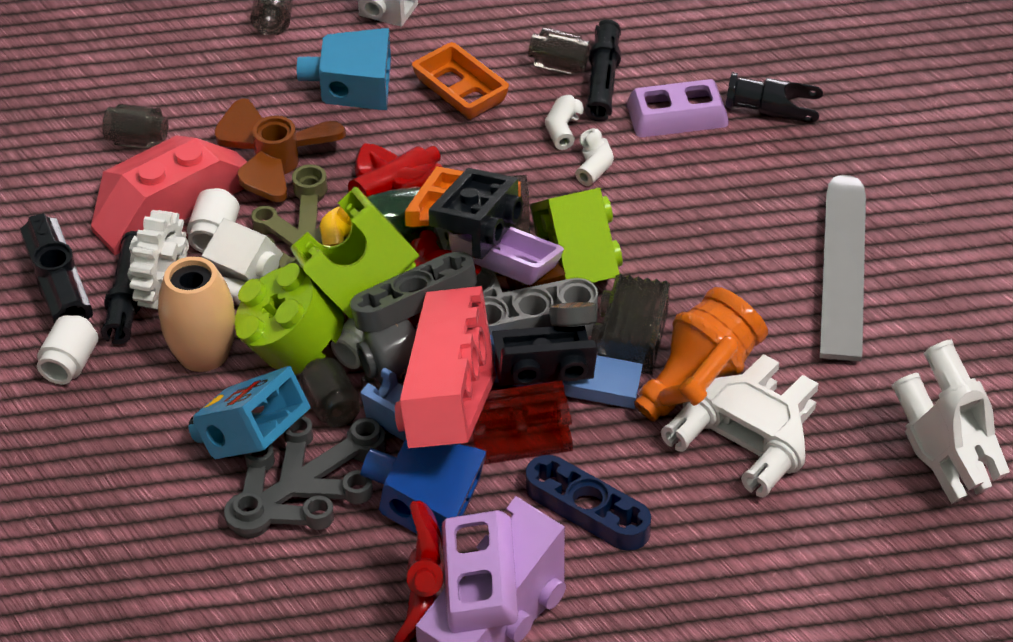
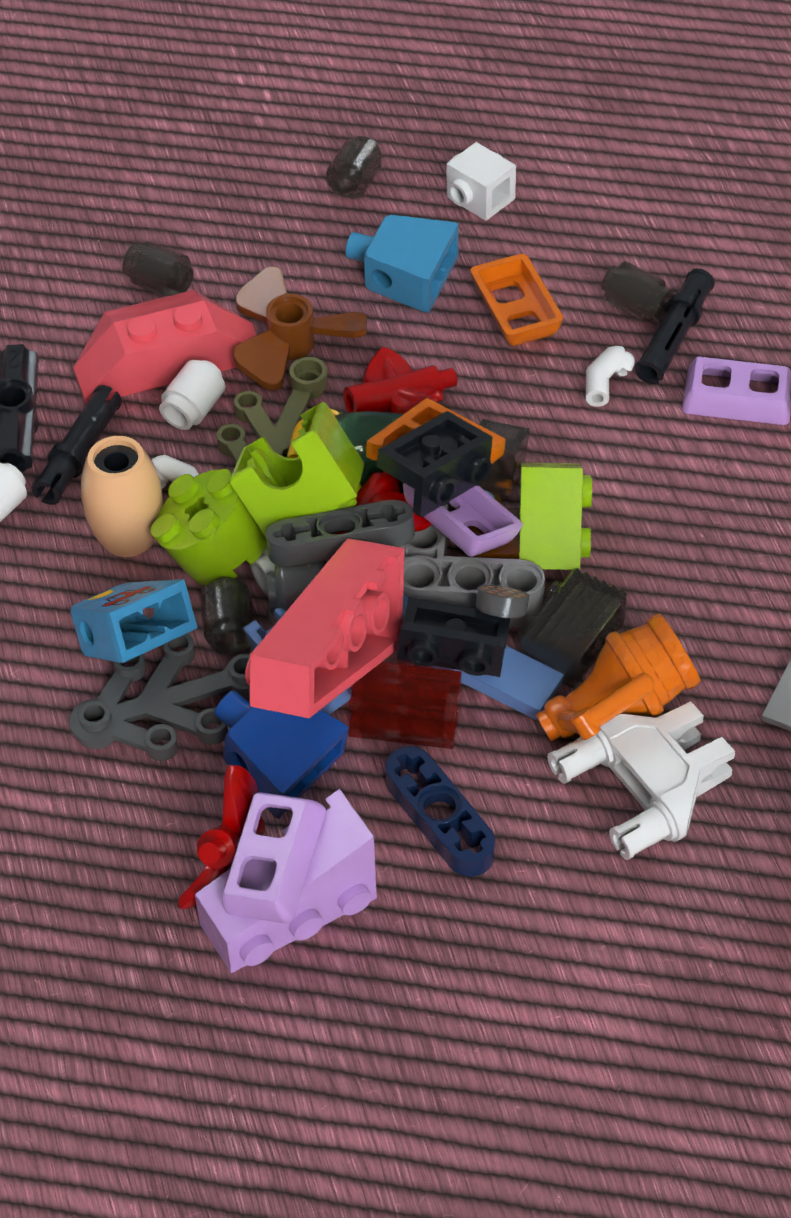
camera: 20 degrees right, 5 degrees up
(153, 252) = (115, 410): white gear -> none
(241, 252) = (201, 439): white brick -> none
(597, 156) = (625, 424): white arm -> none

